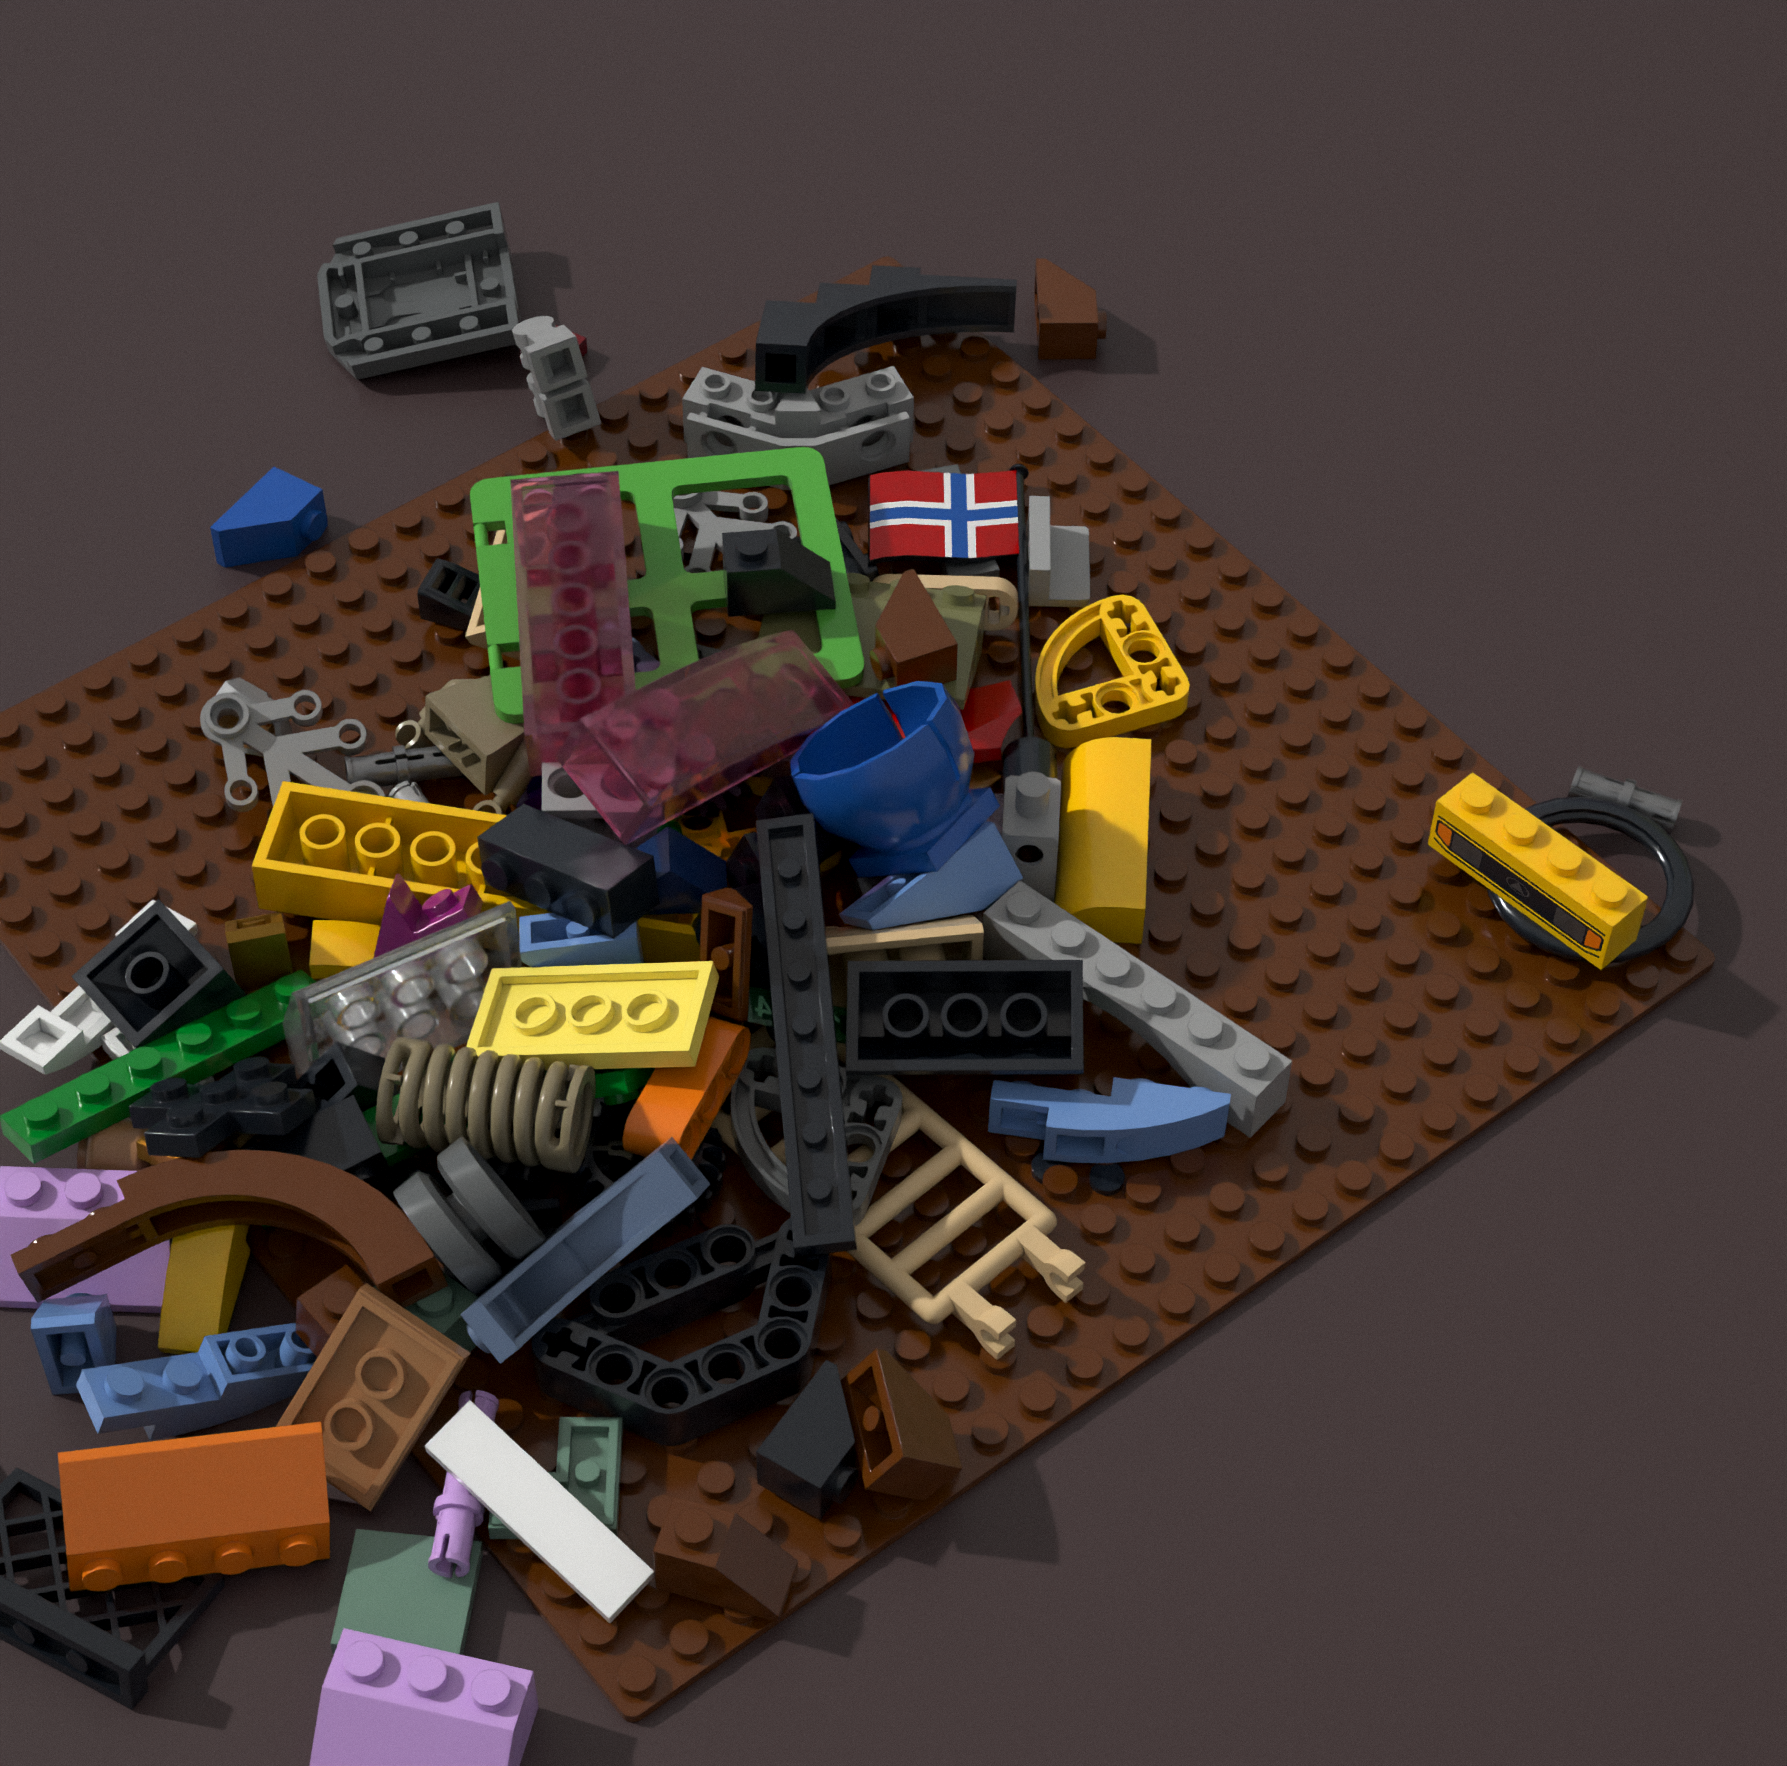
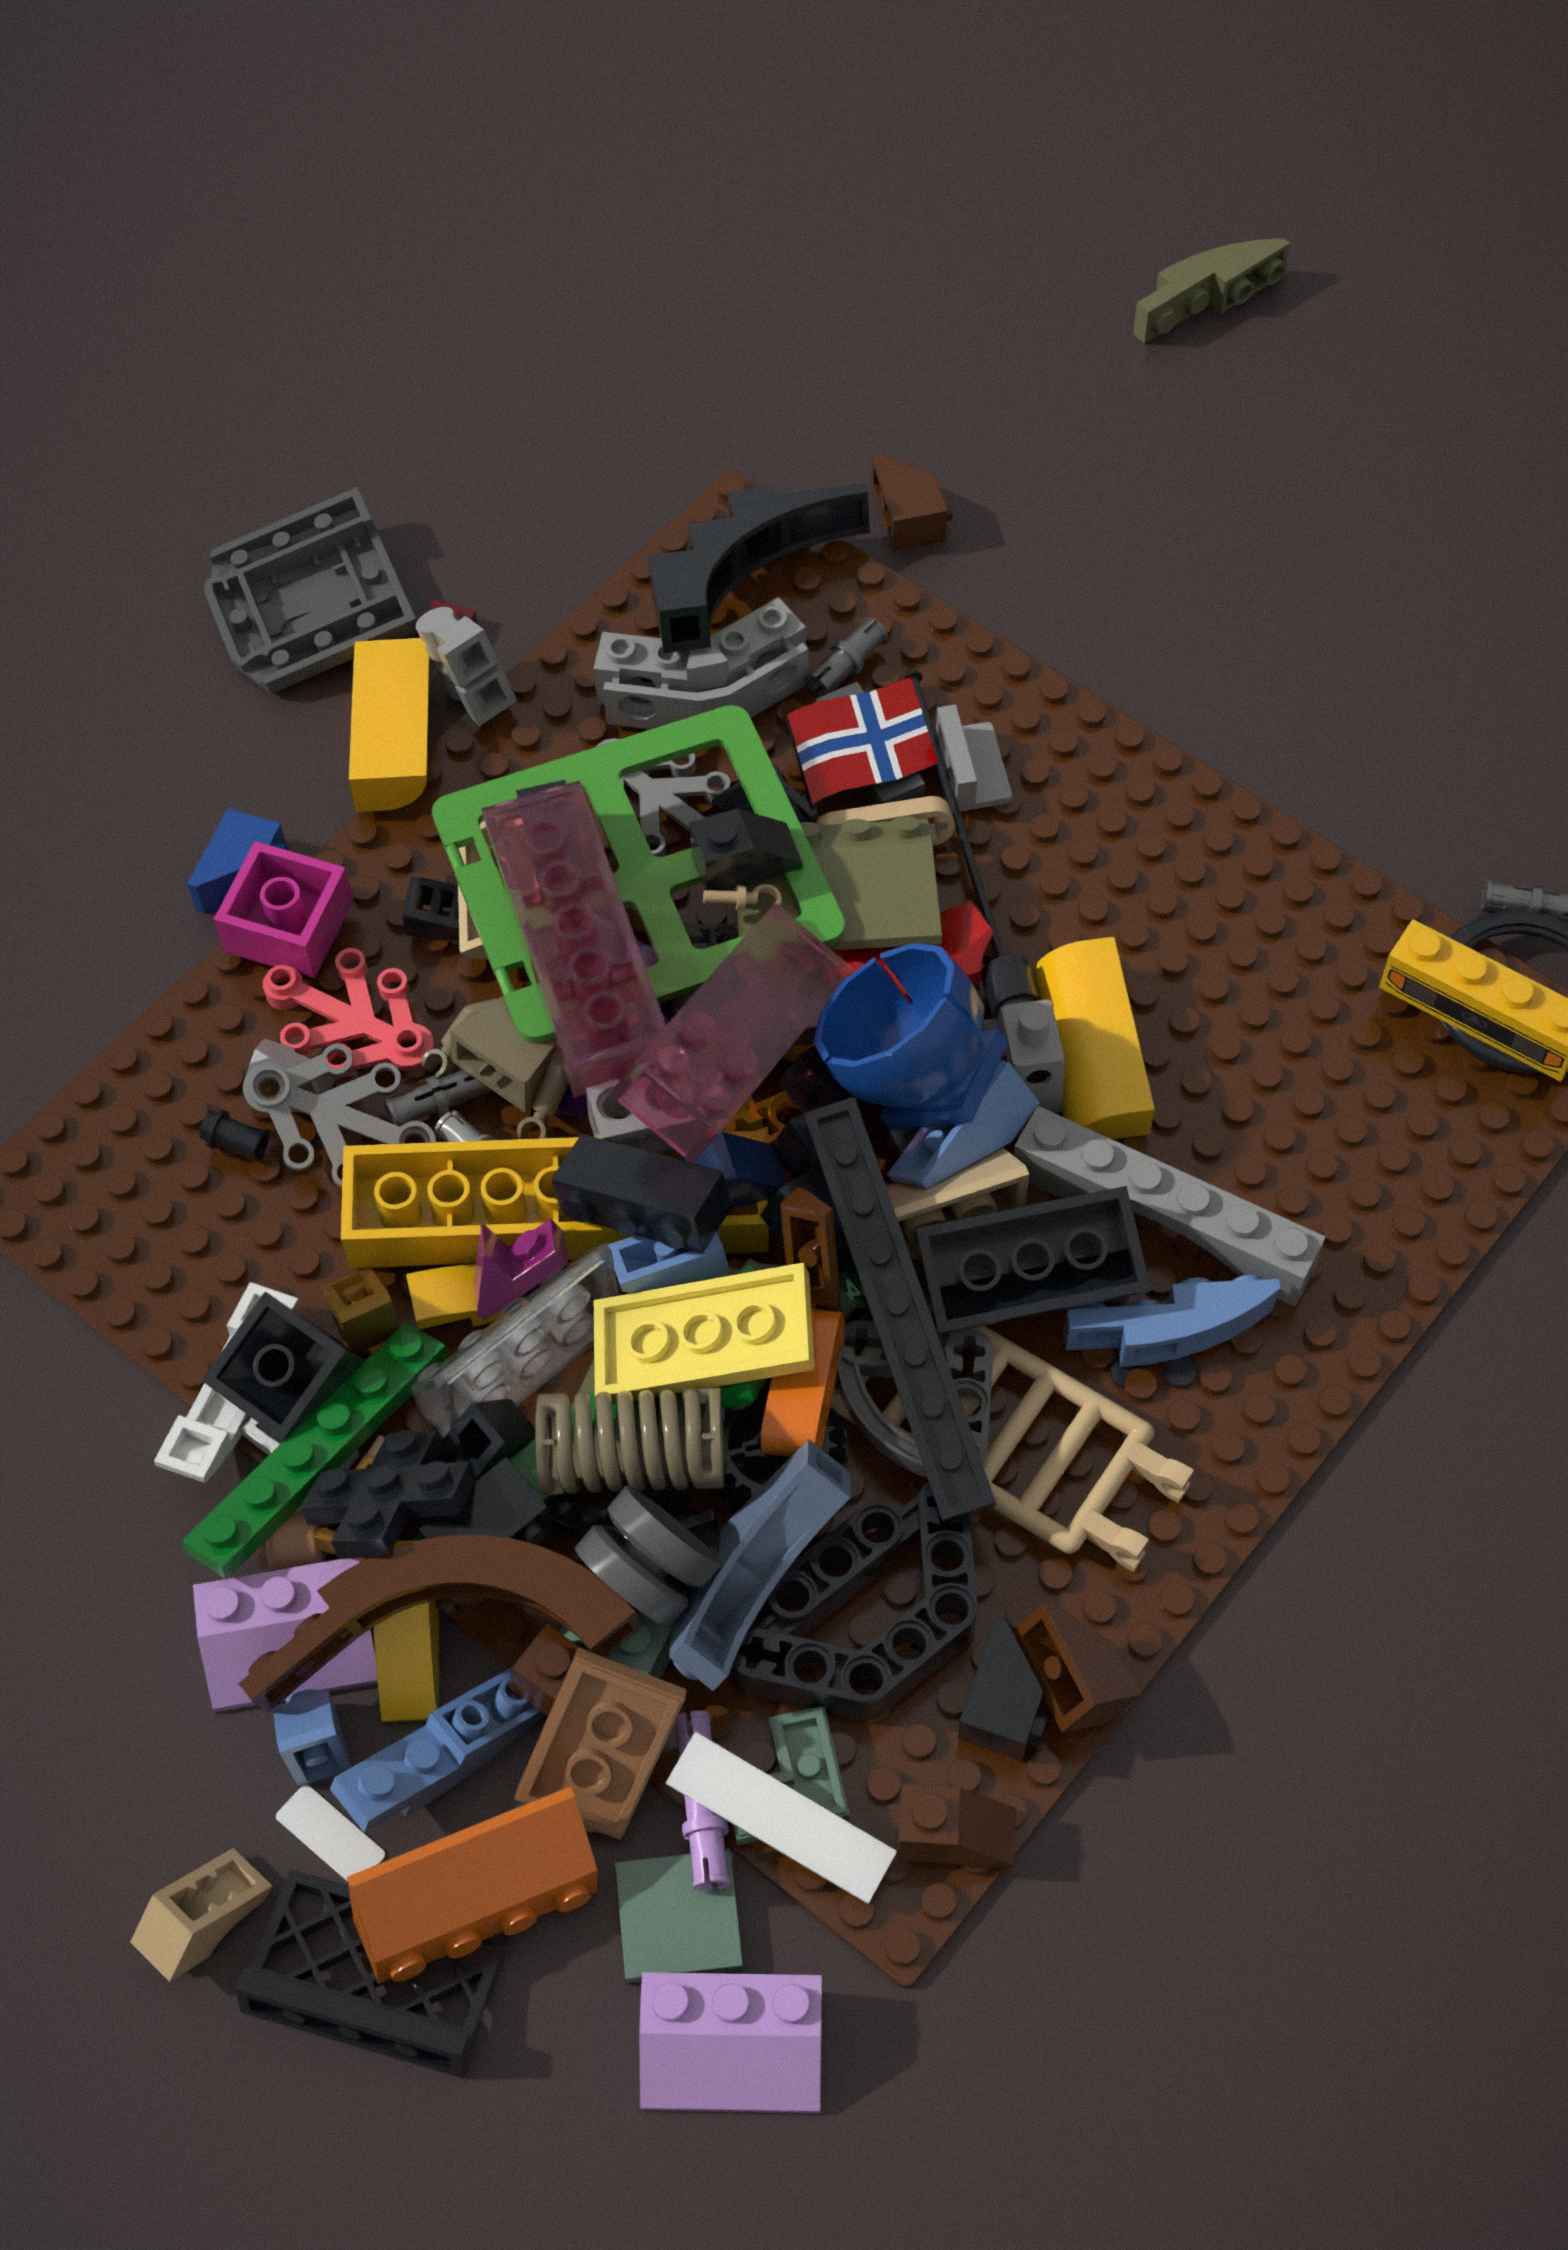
camera: 10 degrees left, 10 degrees up
(57, 1428) = (329, 1833): none -> white sticker
(171, 759) = (233, 1135): none -> black pin
(299, 565) = (284, 909): none -> dark pink brick
(380, 714) = (352, 1020): none -> coral plant
(460, 420) = (389, 723): none -> yellow brick
(760, 620) = (740, 896): none -> tan hand
(913, 638) = (885, 889): reddish brown slope -> none
(954, 440) = (846, 657): none -> flat silver pin
(1136, 688) = (1079, 868): yellow beam -> none
(1446, 160) = (1210, 278): none -> olive slope

